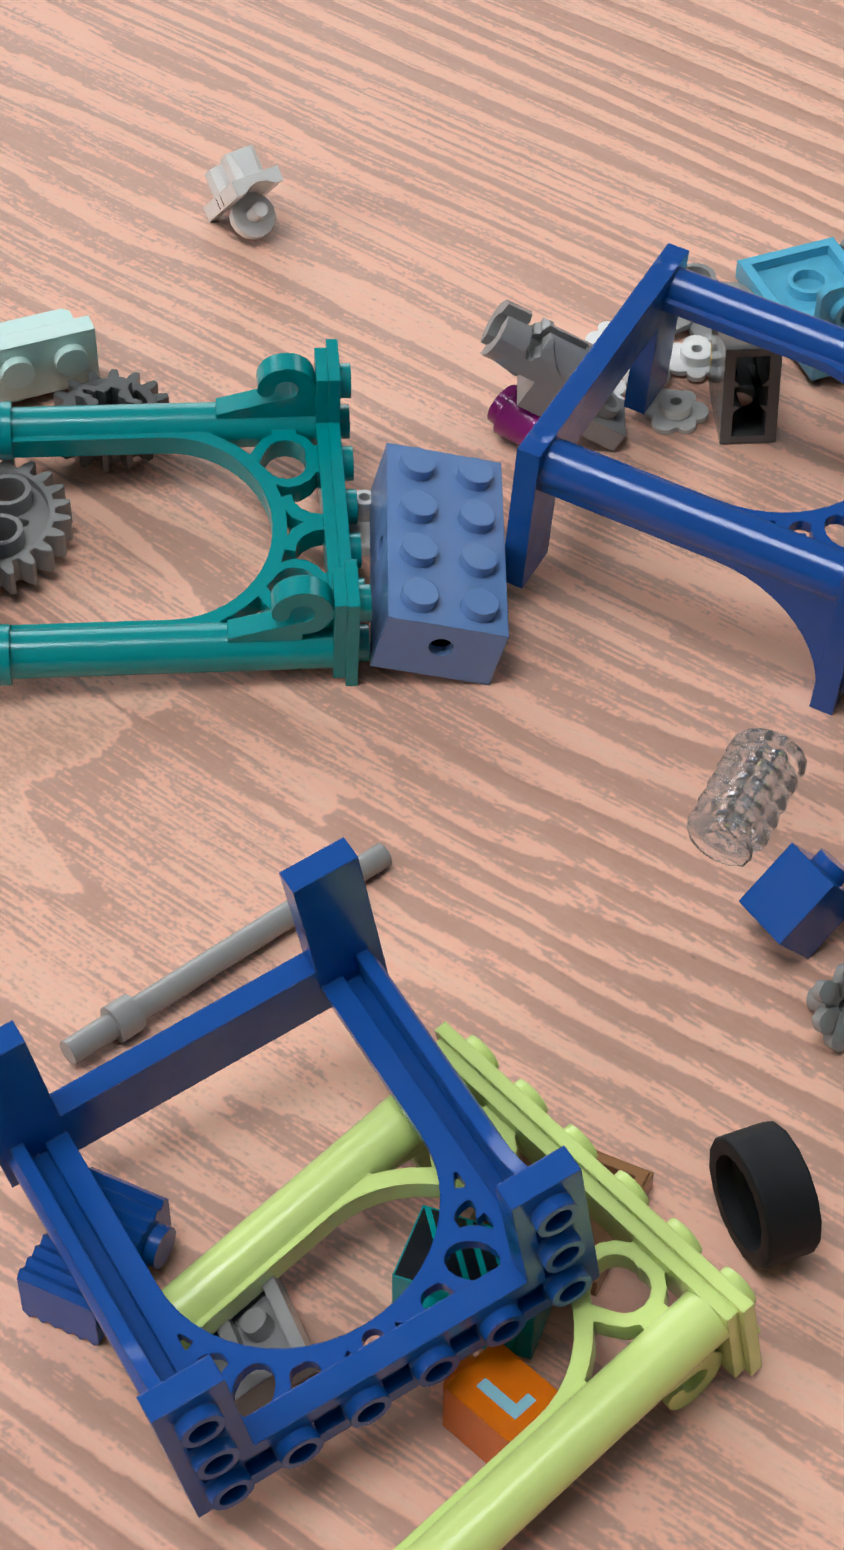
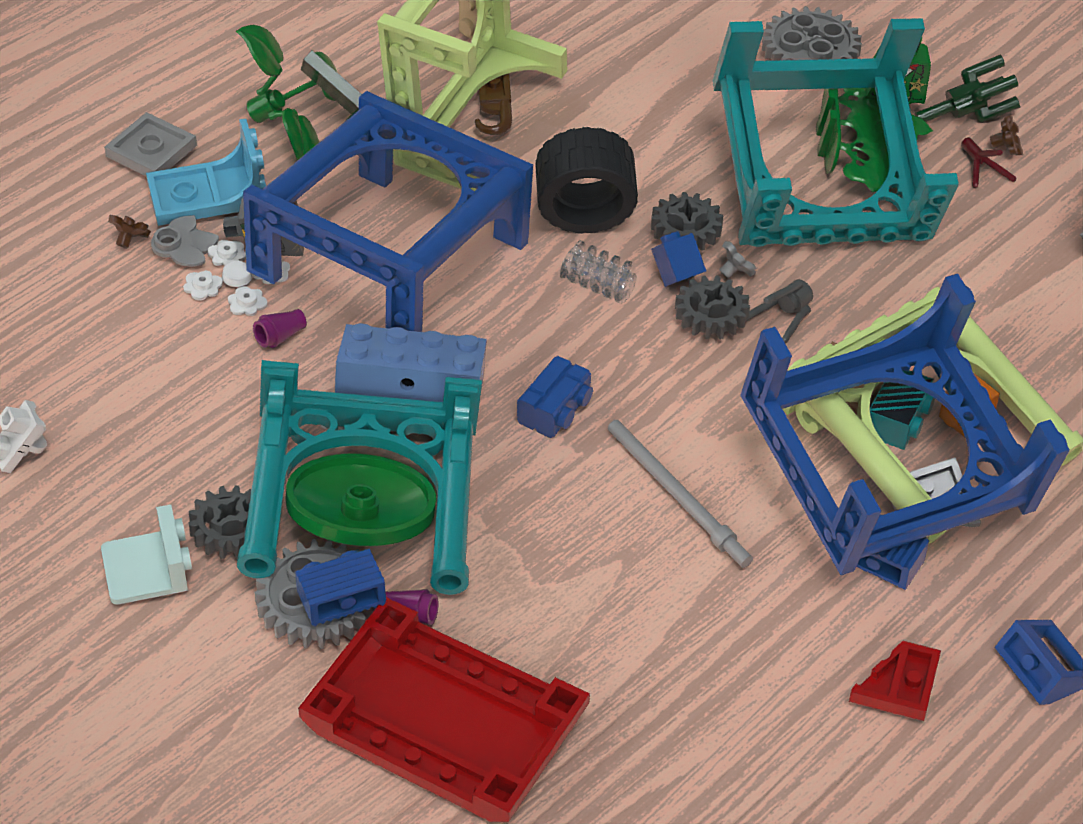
camera: 85 degrees left, 0 degrees up
(143, 532) = (360, 499): none -> green dish
(422, 759) = (554, 397): none -> blue brick
(543, 362) = (270, 292): light grey plate -> none
(698, 970) = (712, 307): none -> dark grey gear
(708, 240) = (128, 229): none -> reddish brown plant
(753, 1098) = (791, 300): none -> dark grey plant
(765, 1194) = (852, 280): black tyre -> none

